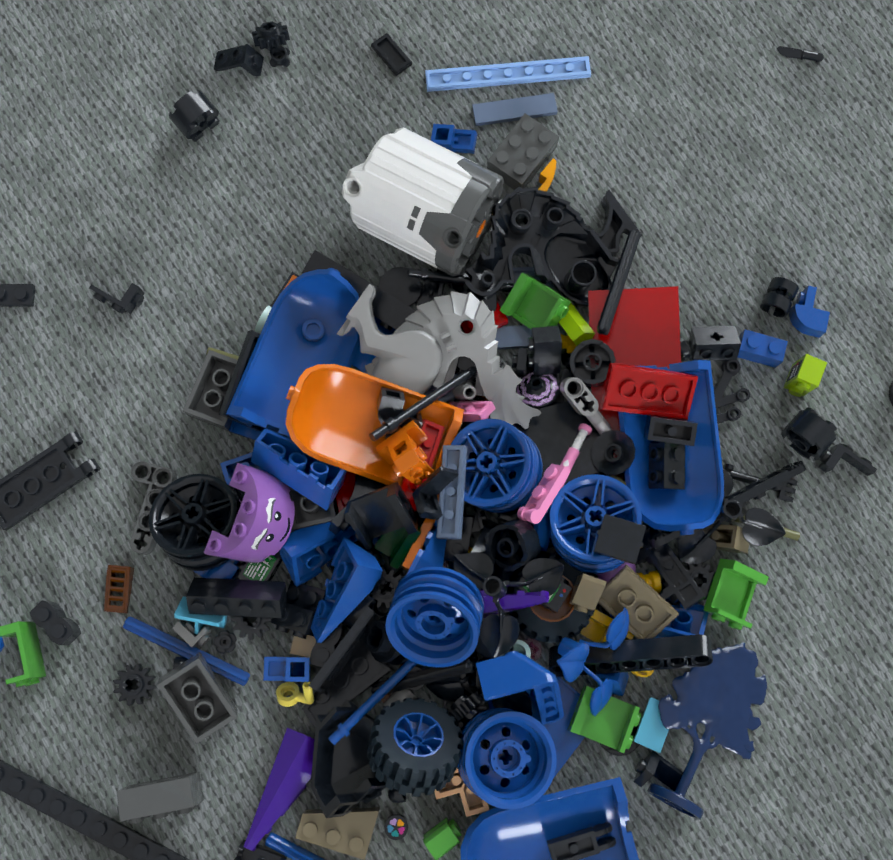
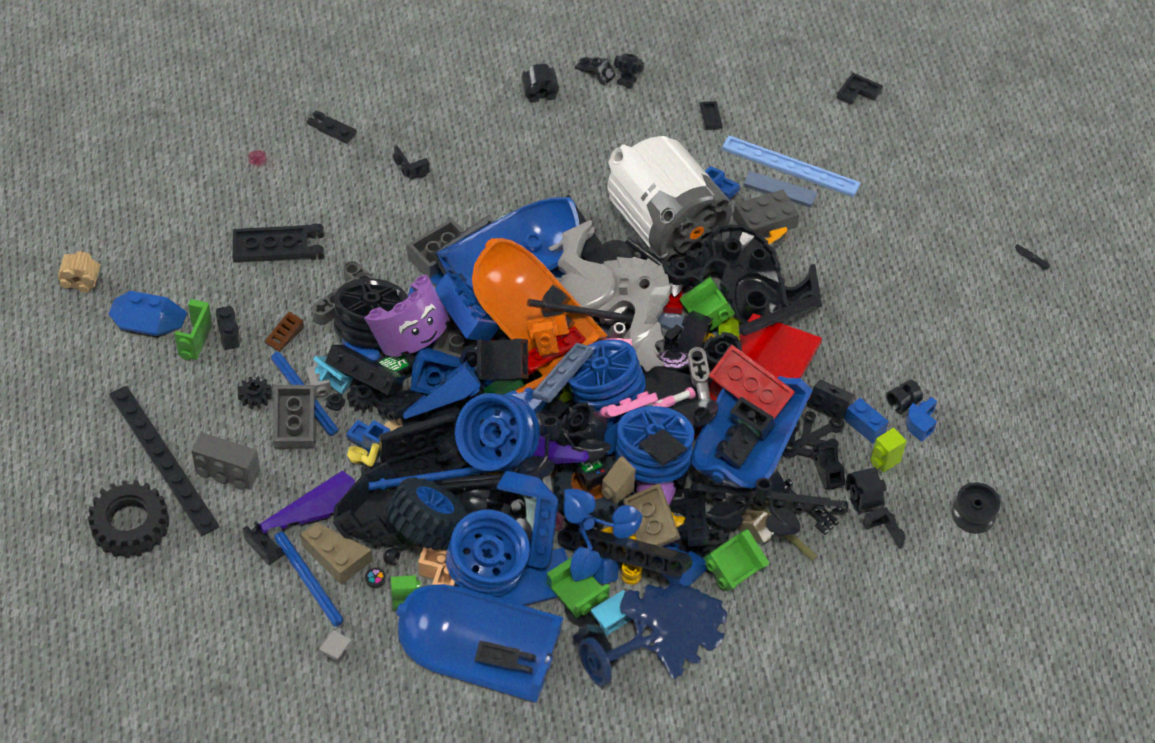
camera: 30 degrees right, 25 degrees down
(426, 494) = (549, 359): black bracket -> none
(757, 426) = (828, 465): none -> black brick

